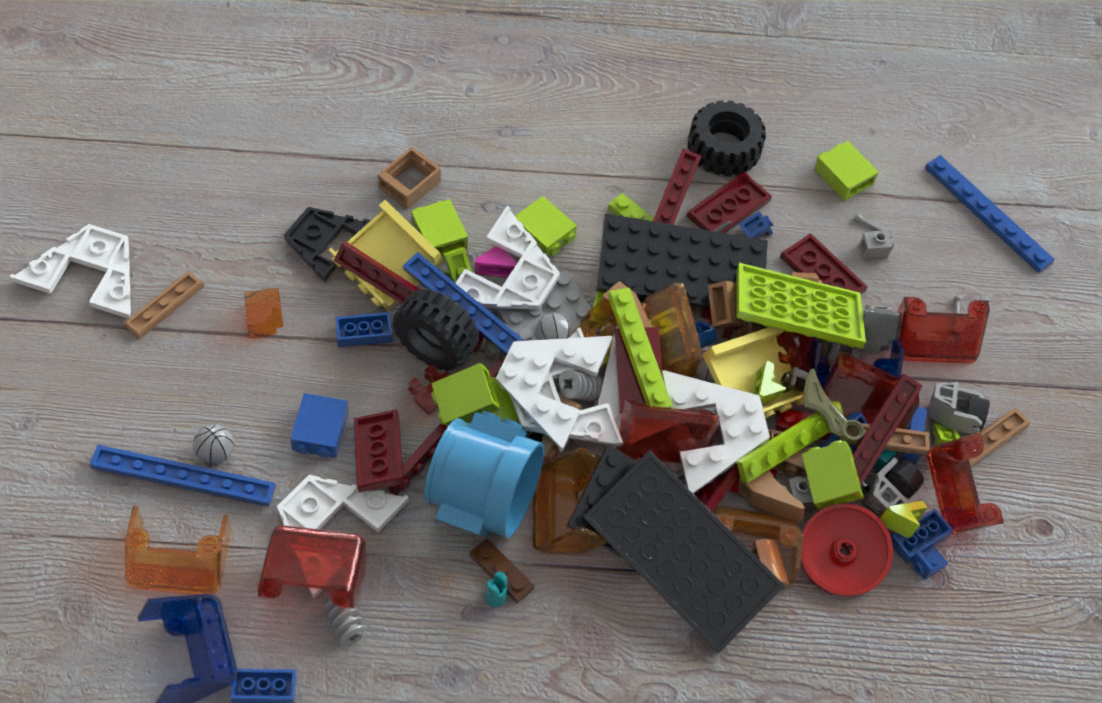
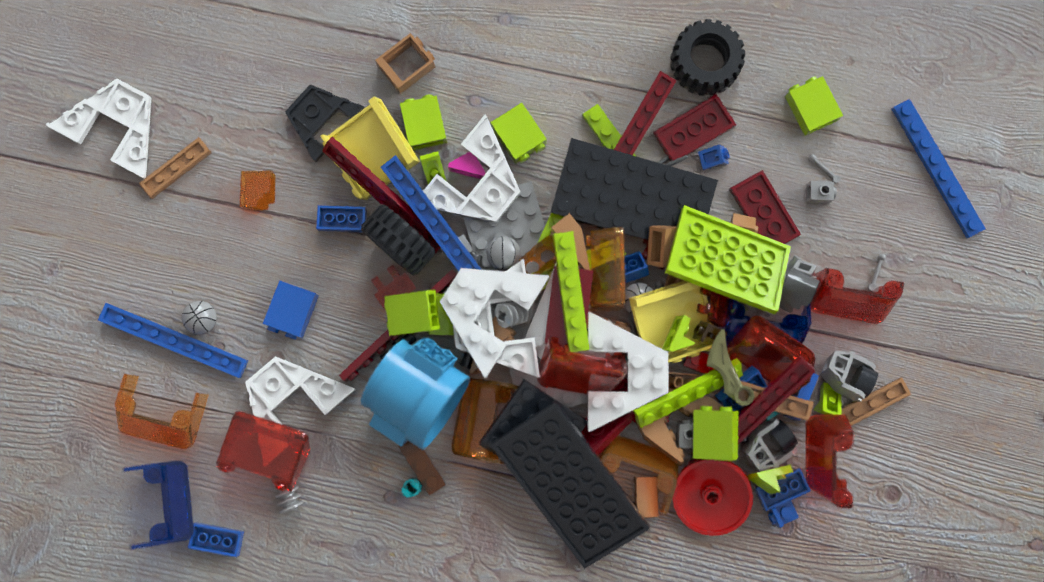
camera: 15 degrees right, 25 degrees up
(378, 451) = (335, 343): dark red tile -> none

